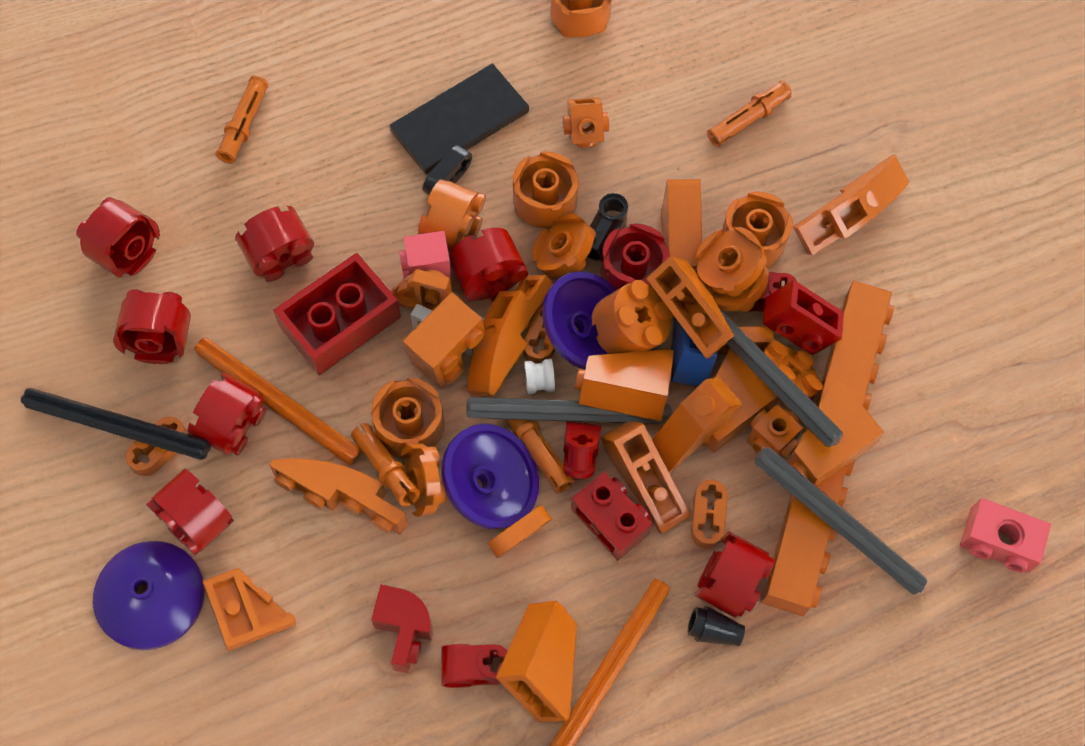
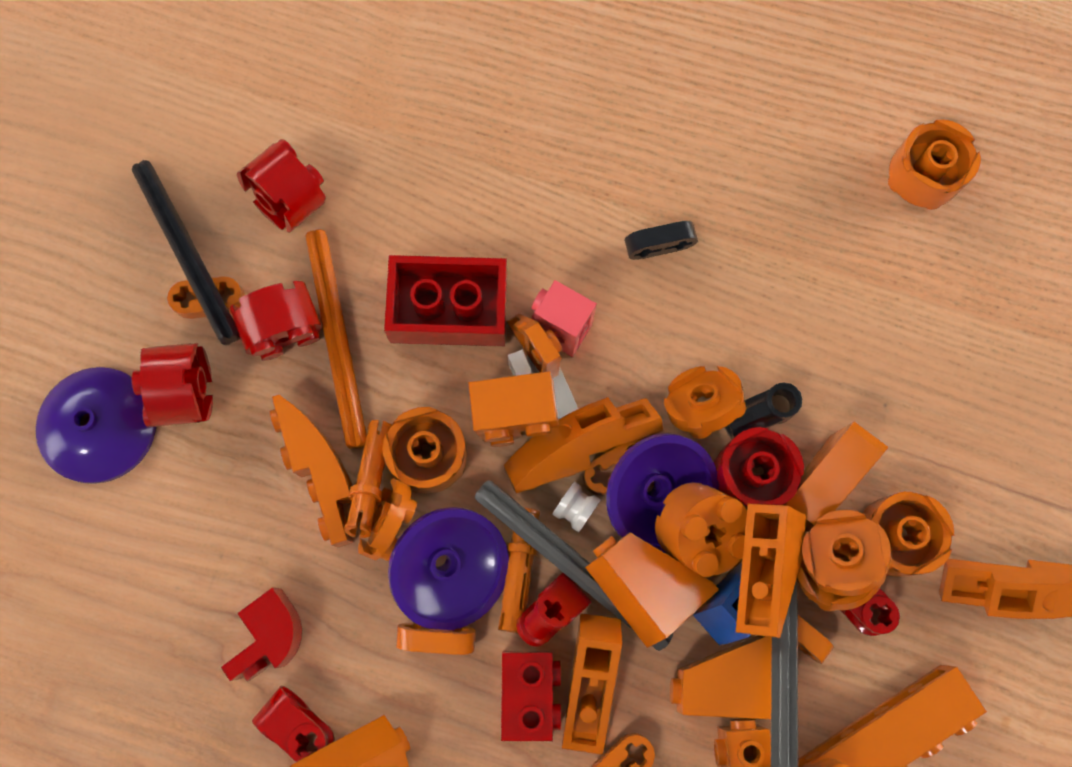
camera: 40 degrees right, 10 degrees up
(118, 237) = (321, 79): red brick -> none
(237, 129) = (489, 66): orange pin -> none
(243, 609) = (153, 506): orange wing -> none
(275, 242) = (448, 189): red brick -> none
(453, 211) = (624, 289): orange brick -> none
(459, 117) = (720, 193): black tile -> none
(487, 264) = (617, 364): red brick -> none
(544, 189) = (740, 311): orange brick -> none
(584, 111) = (832, 291): orange brick -> none
(695, 421) = (675, 682): orange slope -> none
(759, 106) = (1020, 407): orange pin -> none
(796, 366) = (822, 714): orange plate -> none
(803, 317) = (872, 665): red brick -> none

